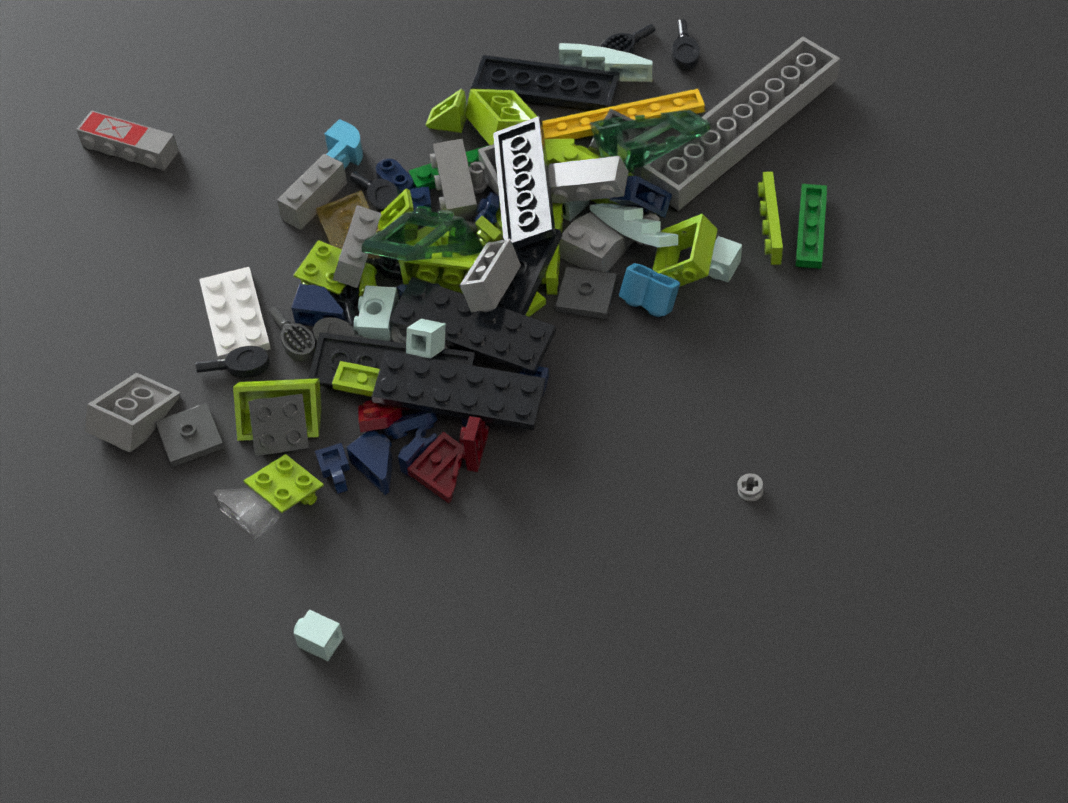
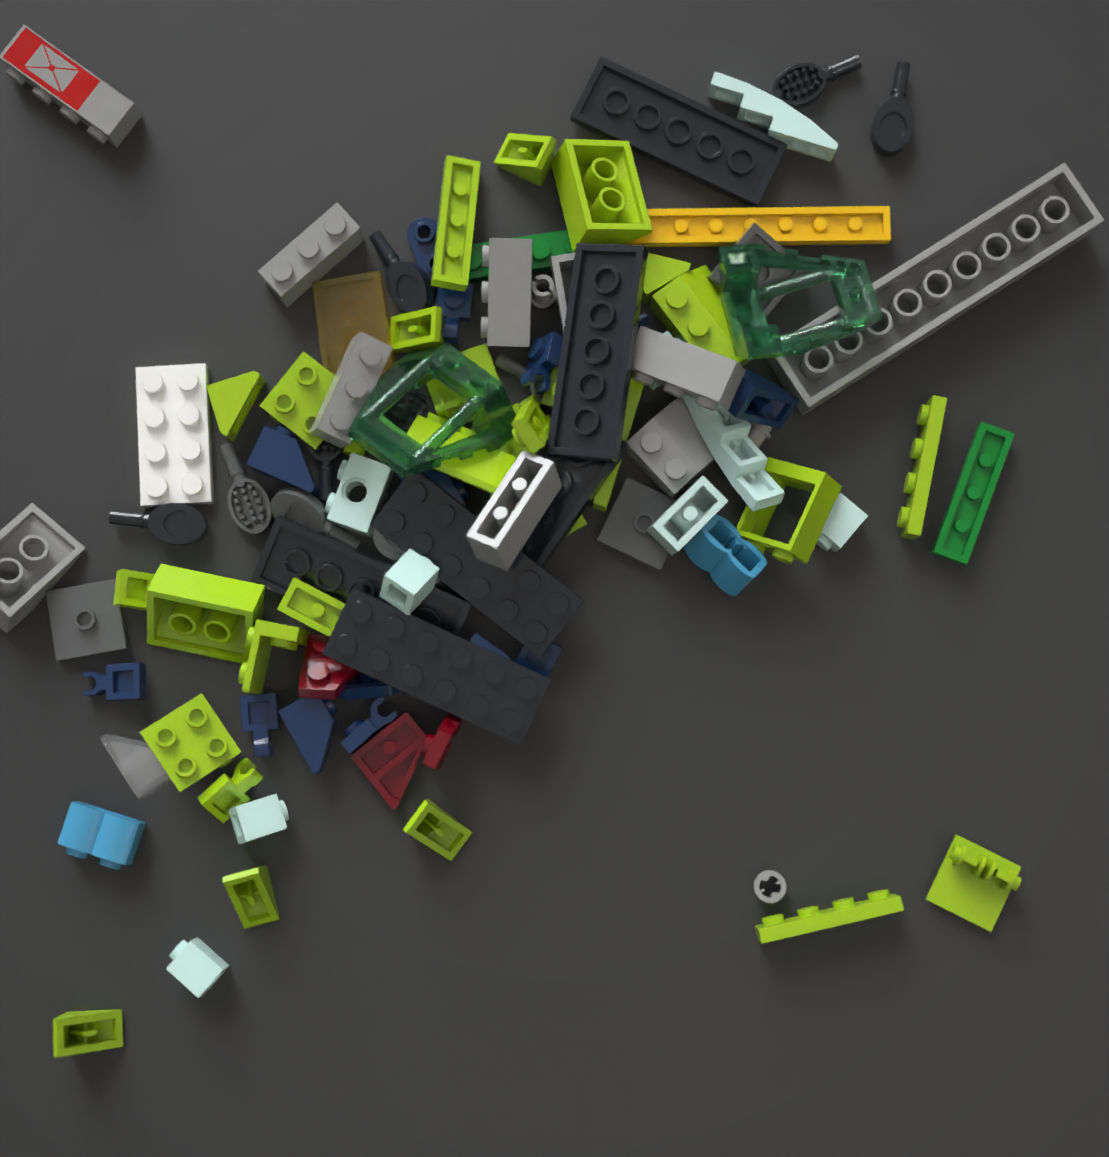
camera: 10 degrees right, 30 degrees up
(221, 404) = (132, 589): none -> lime plate
(221, 465) = (120, 683): none -> dark blue plate
(224, 563) = (101, 834): none -> dark azure brick
(237, 700) = (87, 1031): none -> lime slope
(274, 280) = (233, 401): none -> lime slope
(278, 424) = (197, 650): dark grey hinge -> none
(317, 515) = (230, 792): none -> lime plate
(334, 401) = (260, 641): none -> lime bracket
(344, 143) = (376, 178): medium azure brick -> none
(345, 523) = (259, 818): none -> light aqua brick
(350, 574) = (252, 896): none -> lime slope
(408, 153) = (455, 223): none -> lime plate
(483, 501) = (437, 830): none -> lime slope
(610, 269) = (687, 515): none -> light aqua brick
(802, 492) = (843, 912): none -> lime plate
(902, 450) = (974, 883): none -> lime hinge

